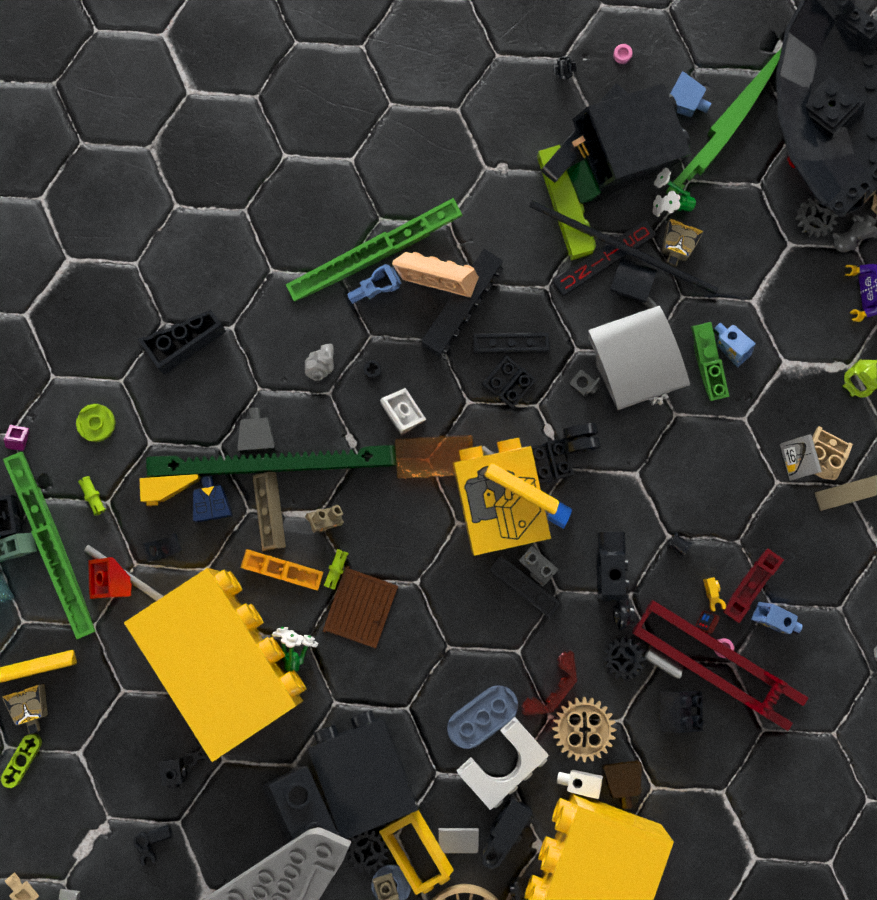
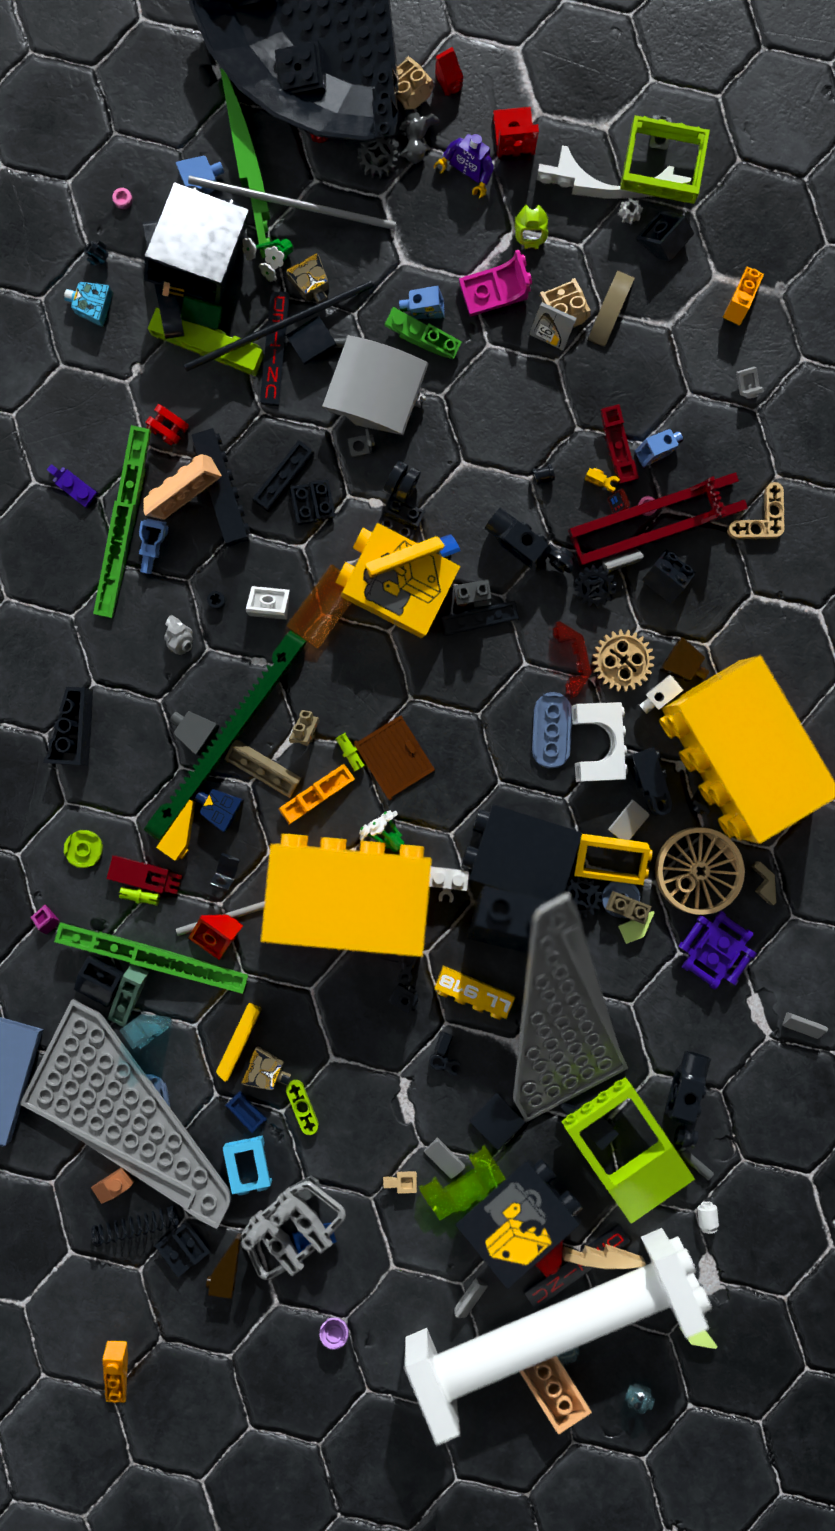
camera: 50 degrees left, 5 degrees up
(107, 478) = (136, 872): none -> dark red hinge
(221, 826) = (472, 991): none -> yellow brick
(295, 731) = (448, 880): none -> white brick
(372, 191) = (72, 485): none -> dark purple hinge
(470, 232) = (169, 435): none -> red brick
(524, 92) = (90, 301): none -> medium azure torso
(726, 182) = (291, 202): none -> light grey piece
(786, 755) = (766, 524): none -> tan beam
(794, 388) = (496, 286): none -> dark pink bracket

